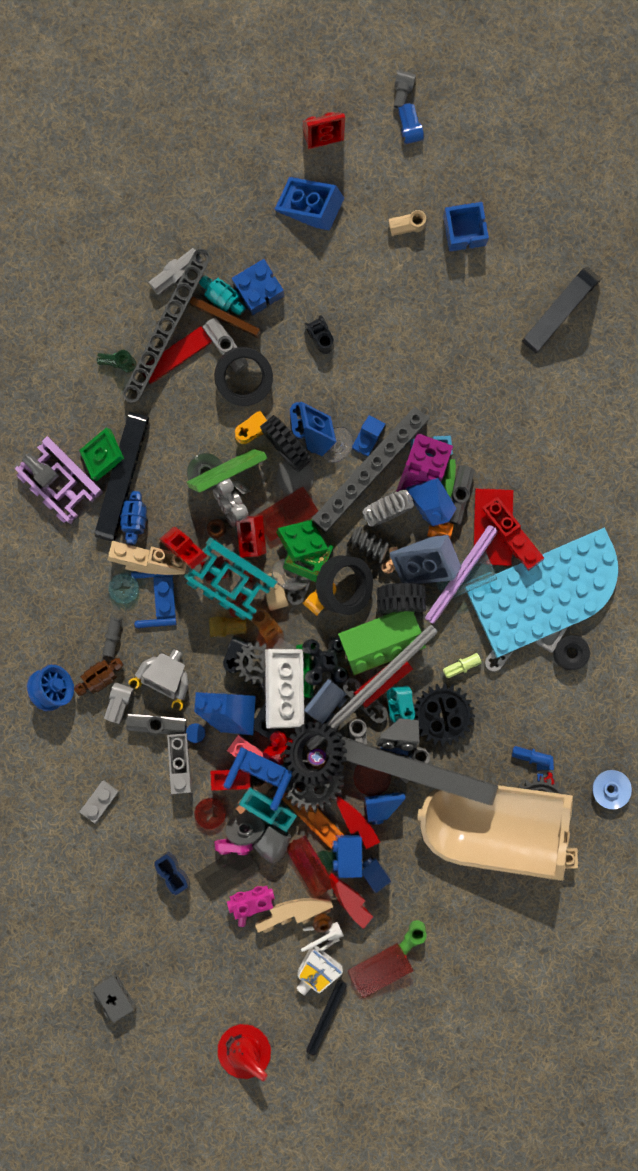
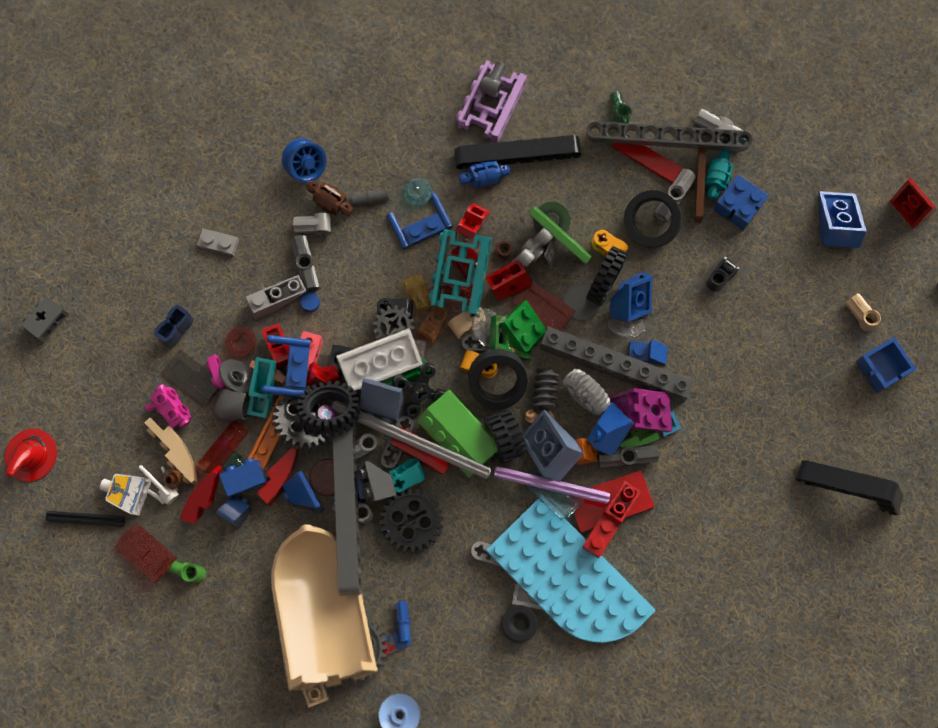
camera: 70 degrees right, 10 degrees down
(101, 454) = (529, 126): green plate -> none
(146, 561) = (449, 197): tan slope -> none
(164, 675) = (351, 254): light grey torso -> none
(227, 711) = (338, 317): blue slope -> none
(462, 666) = (465, 521): yellowish green axle -> none

